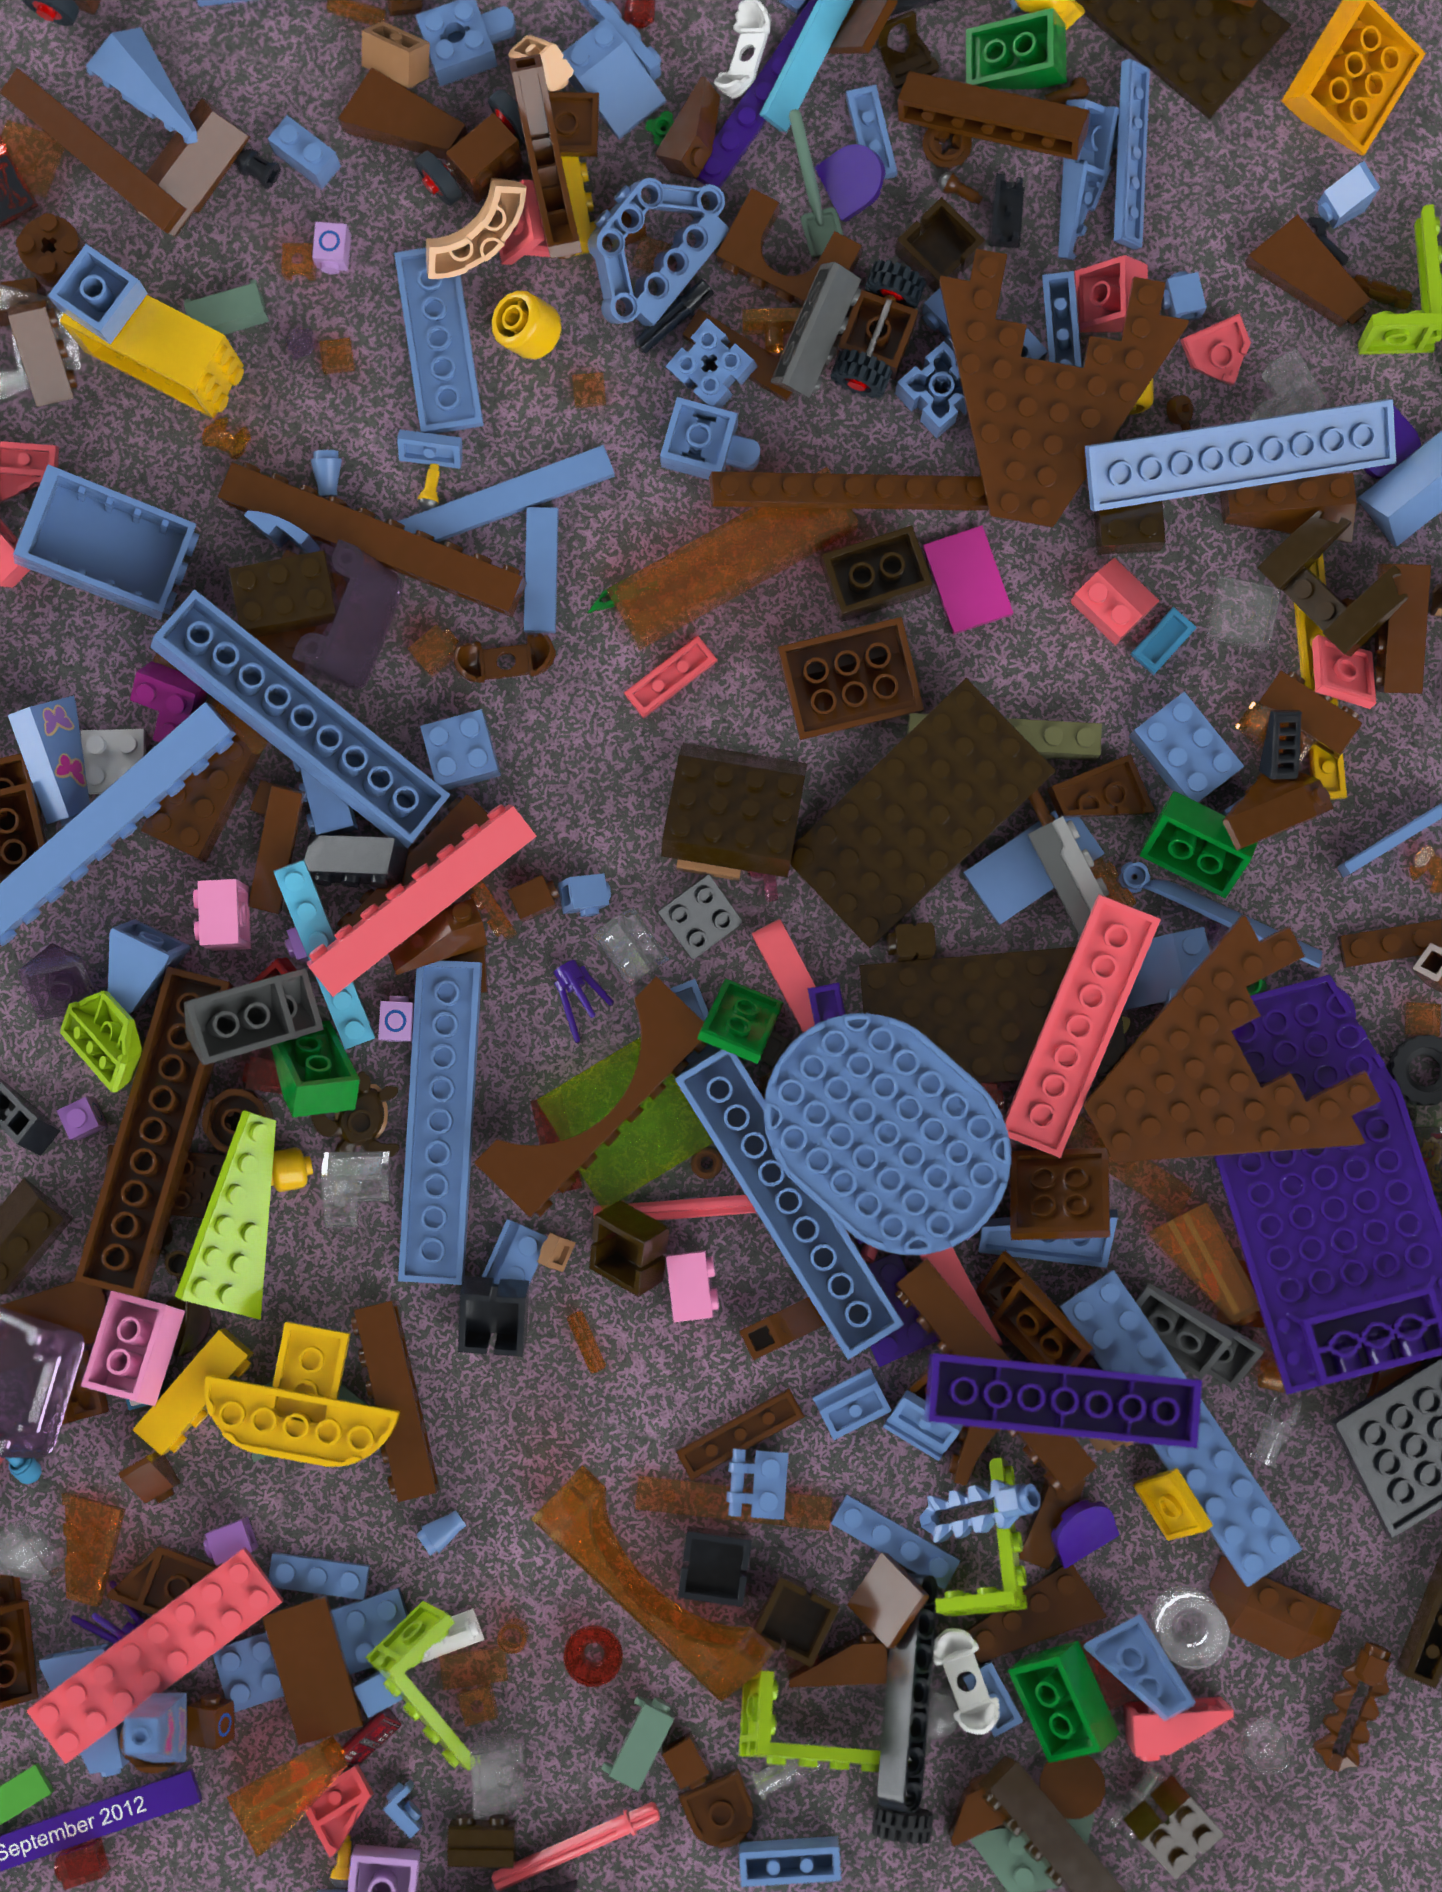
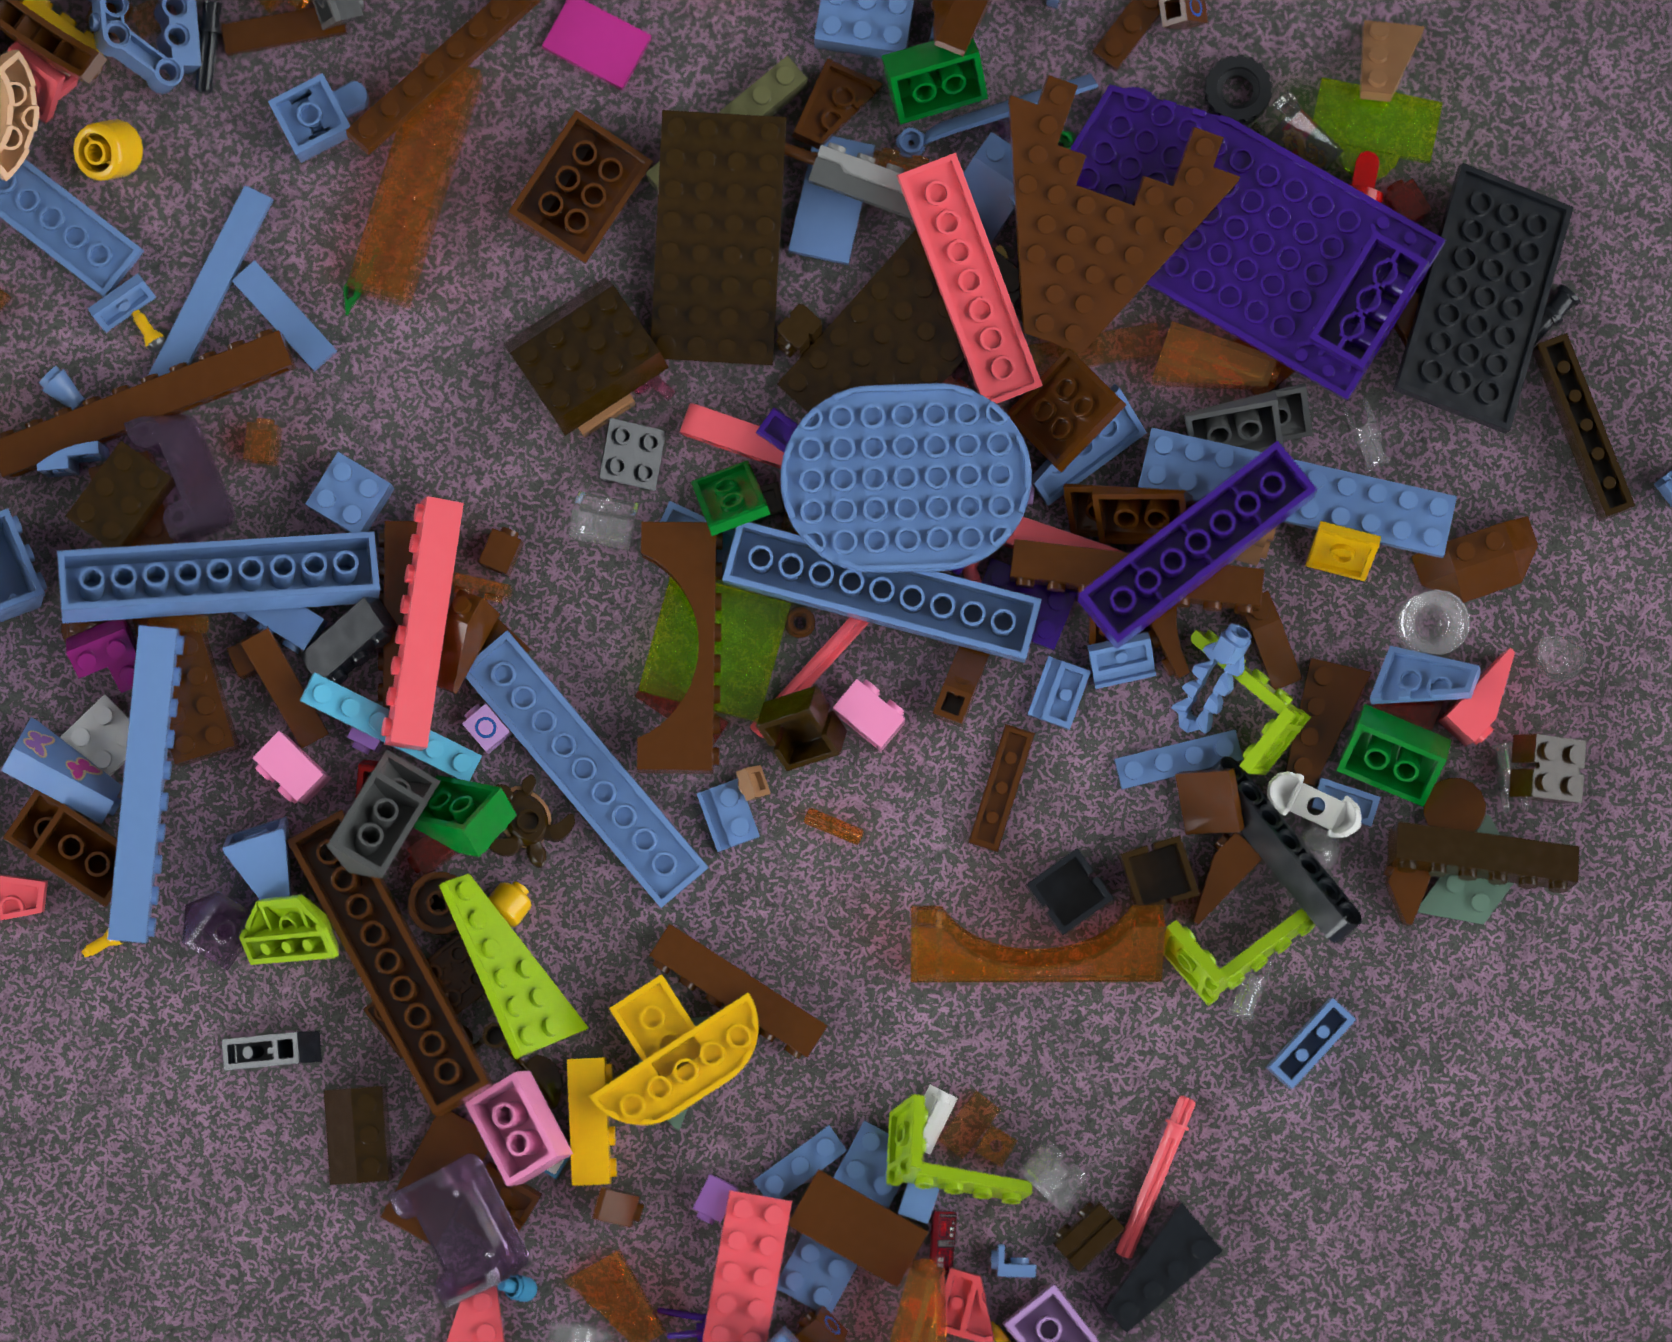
camera: 45 degrees left, 0 degrees up
(82, 1118) = (326, 1007): medium lavender brick -> none
(160, 1579) = (690, 1273): reddish brown wing -> none
(352, 1179) = (561, 864): clear brick -> none
(440, 1532) = (856, 1053): medium blue cone -> none
(481, 664) = (337, 385): reddish brown piece -> none
(493, 1309) = (750, 862): black piece -> none
(504, 1644) = (986, 1074): clear orange beam -> none
(571, 977) = (581, 583): dark purple plant -> none
(584, 894) = (535, 515): medium blue brick -> none
(587, 1672) = (1060, 1030): clear red piece -> none
(589, 390) = (196, 155): clear orange tile -> none
(641, 1742) = (1133, 1061): sand green brick -> none
(670, 677) = (450, 306): coral tile -> none
(686, 1762) = (1177, 1045): reddish brown brick -> none
(709, 346) = (255, 43): medium blue brick -> none
(710, 1501) = (1041, 839): clear orange tile -> none
(719, 1810) = (1231, 1058): reddish brown tile -> none
(768, 1484) = (1053, 801): medium blue plate -> none
(876, 573) = (528, 96): dark brown brick -> none
(903, 1826) = (1362, 943): black tyre -> none
(1083, 1531) = (1299, 627): dark purple tile -> none
(1270, 1376) = (1330, 402): clear orange beam -> none
(1371, 1669) = (1581, 536): reddish brown sword -> none
(1422, 1019) = (1203, 56): clear orange tile -> none

